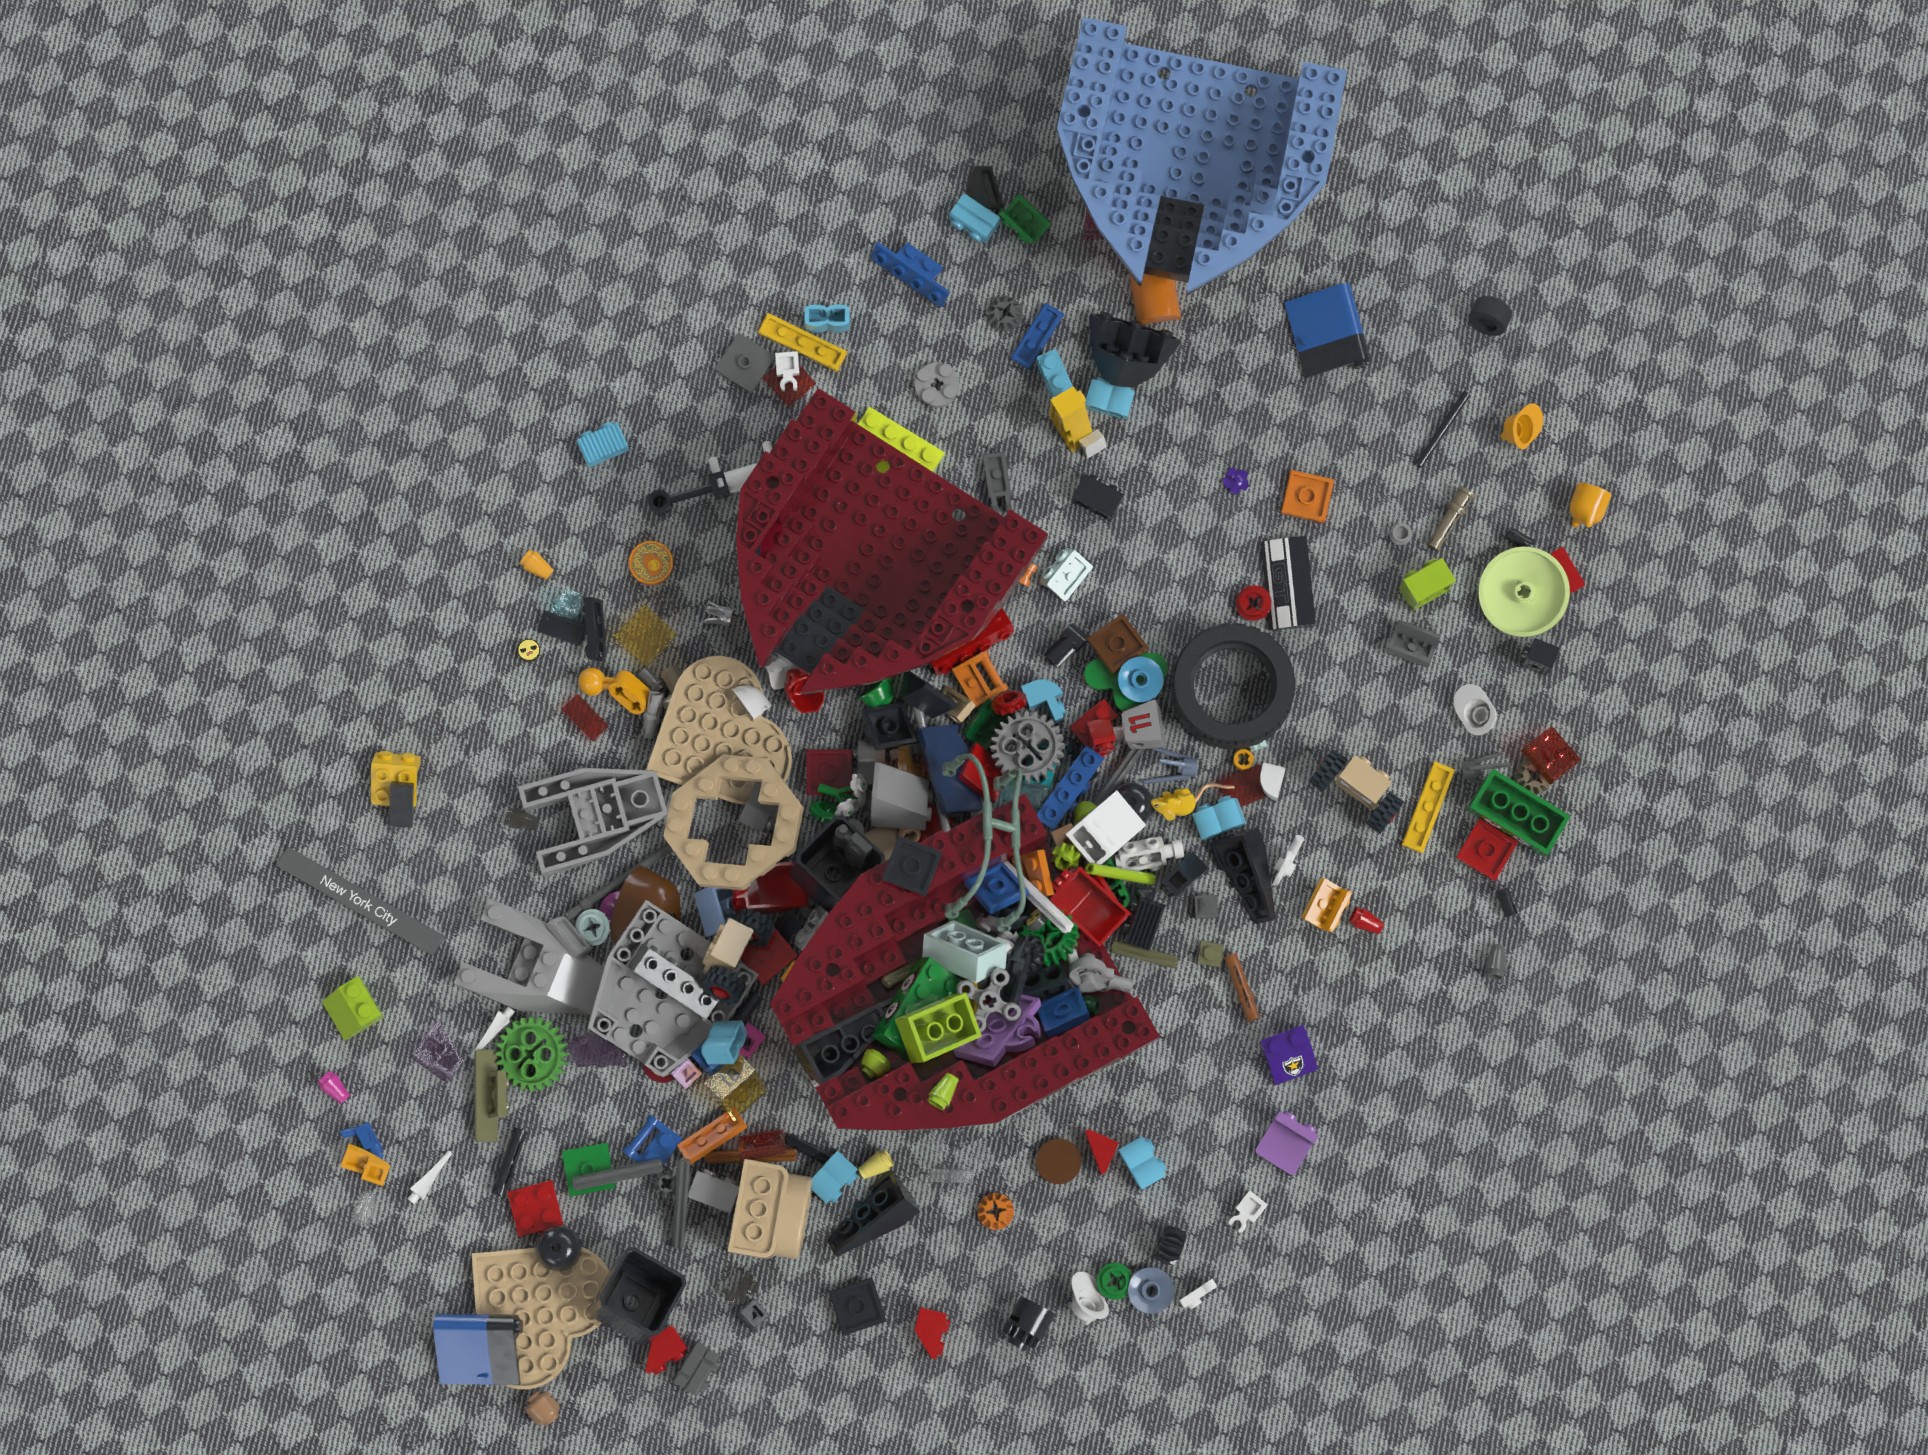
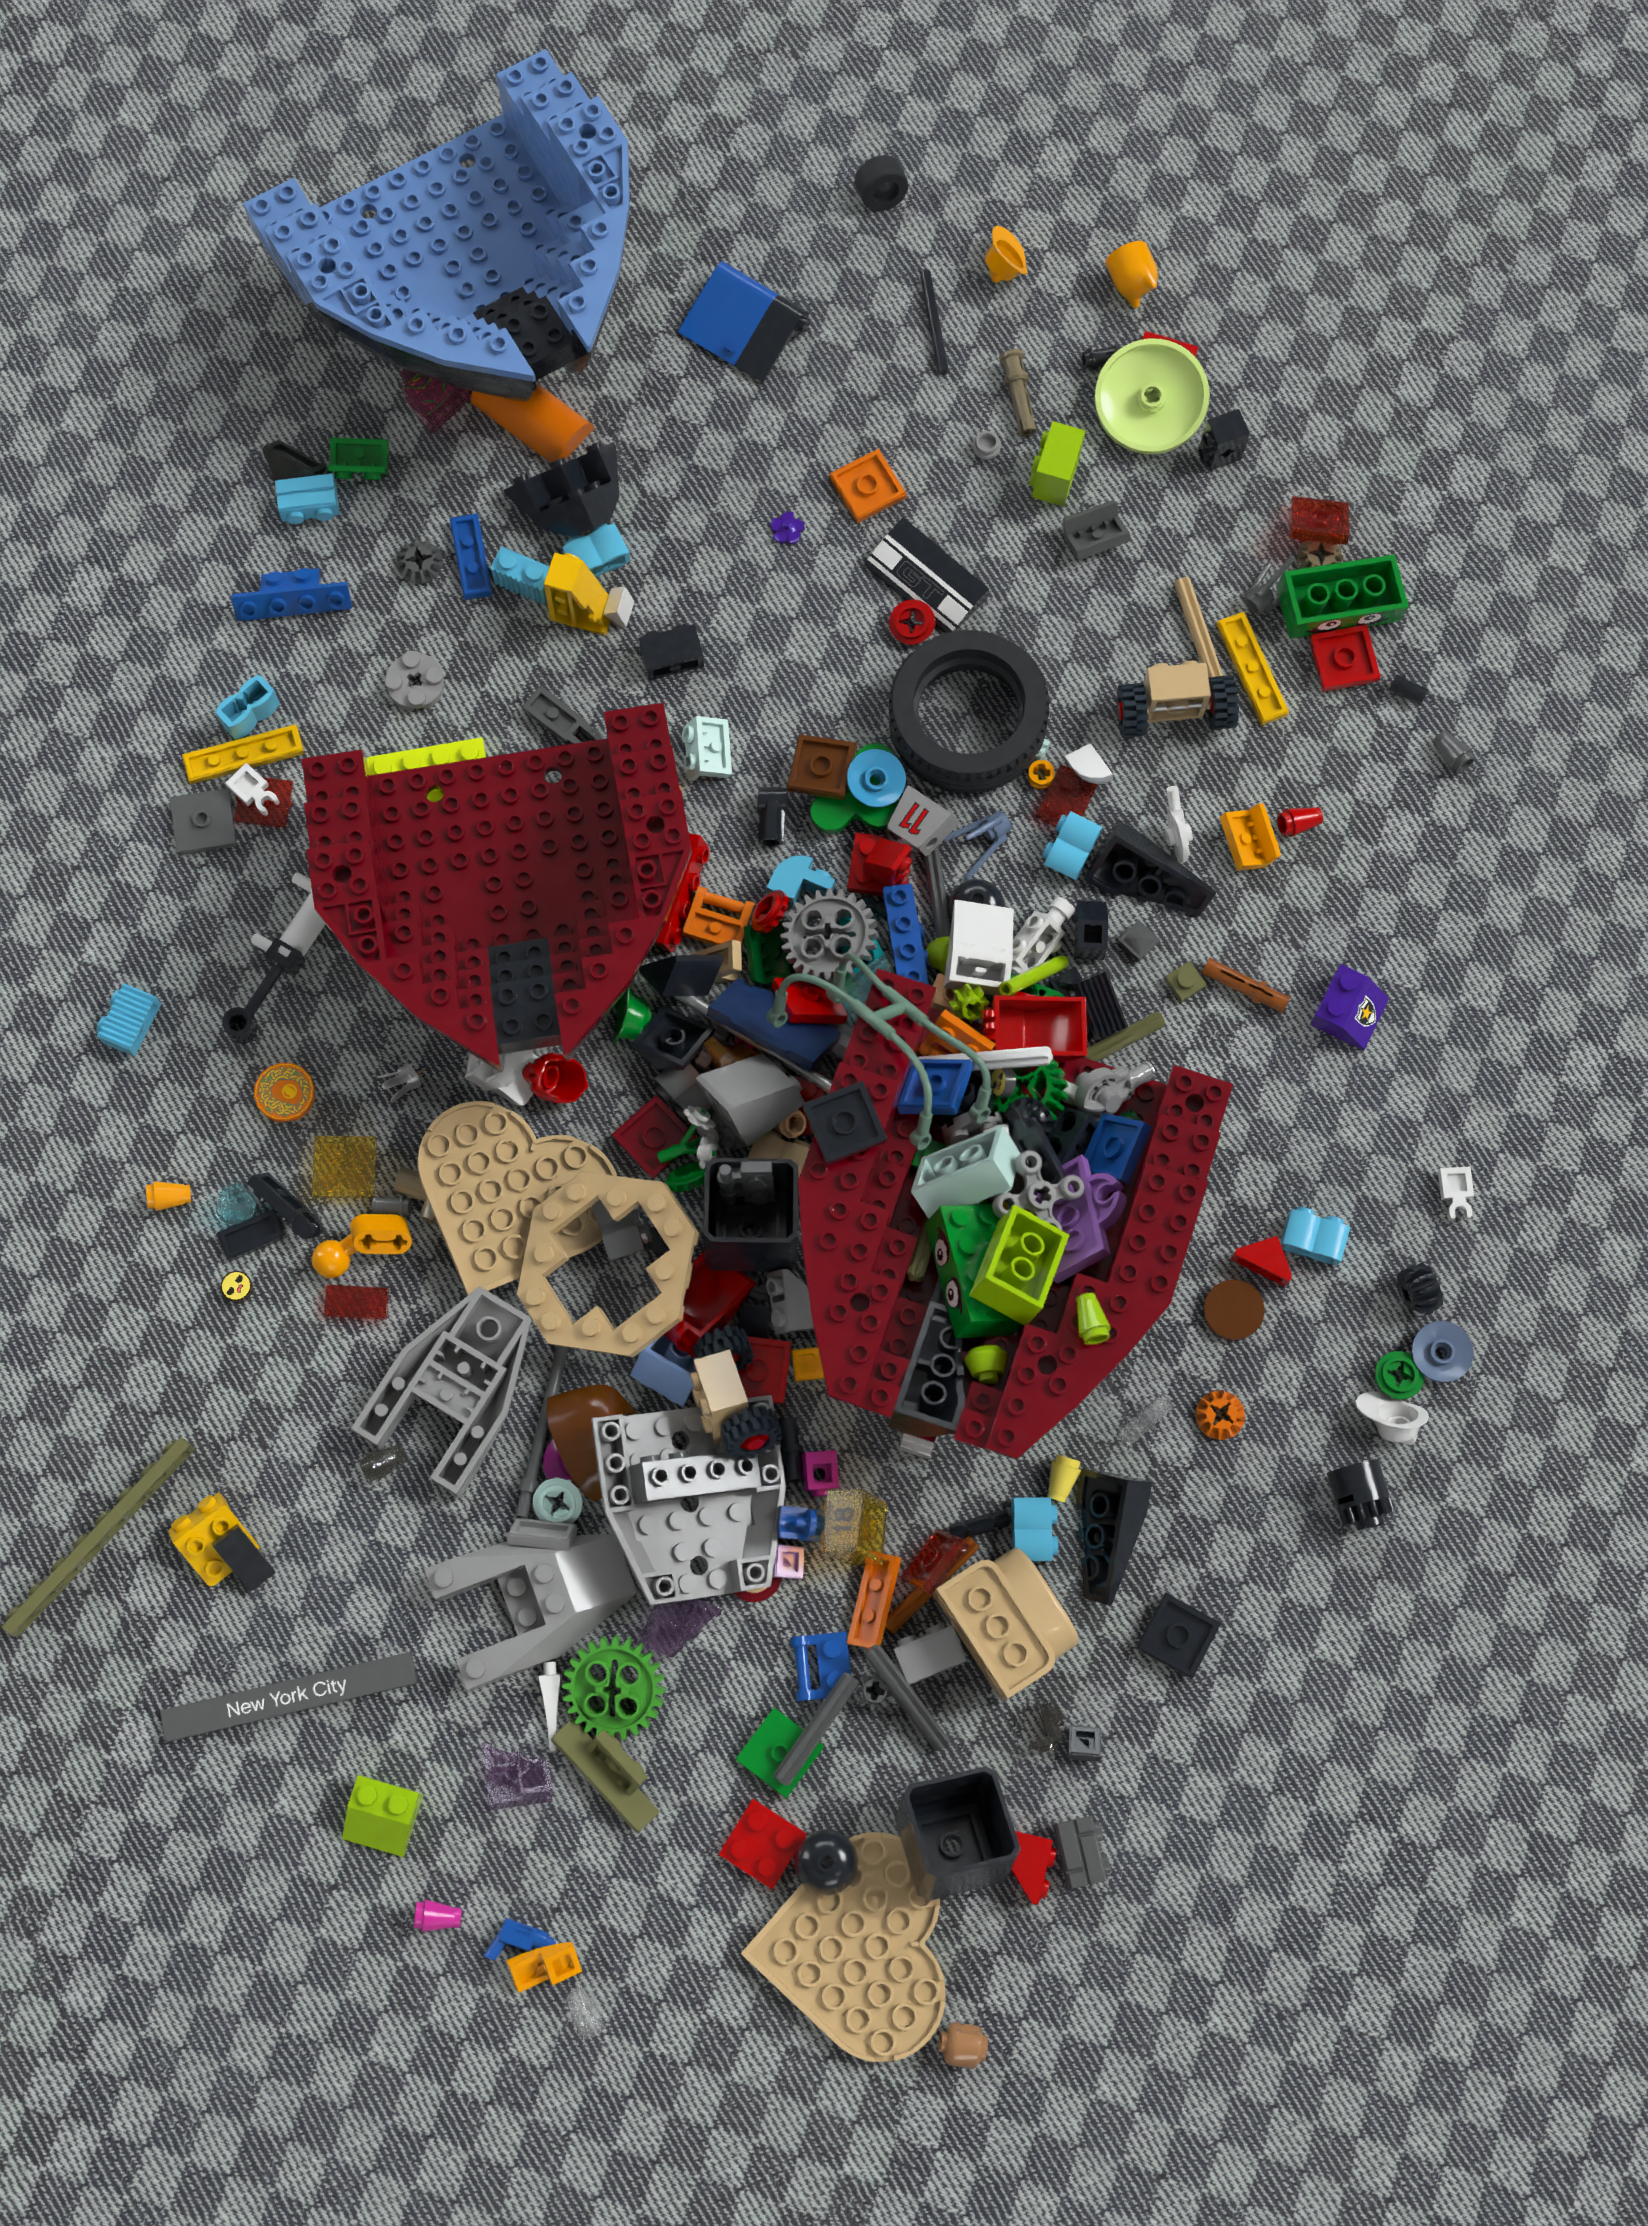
camera: 45 degrees left, 5 degrees down
(328, 723) = (90, 1544): none -> olive plate
(421, 1188) = (624, 1930): white piece -> none
(477, 1348) = (839, 2047): door -> none
(509, 1162) = (694, 1826): black pin -> none
(652, 714) = (423, 1237): light grey pin -> none
(724, 1042) = (802, 1492): medium azure brick -> none
(752, 699) = (513, 1129): white brick -> none
(929, 1328) = (1270, 1591): red slope -> none
(1181, 801) = (1021, 862): yellow animal -> none
(1193, 1298) = (1488, 1322): white plate -> none
(1286, 1142) = (1429, 1090): medium lavender bracket -> none
(1417, 756) = (1197, 626): none -> tan axle
(1474, 709) = (1211, 538): white piece -> none

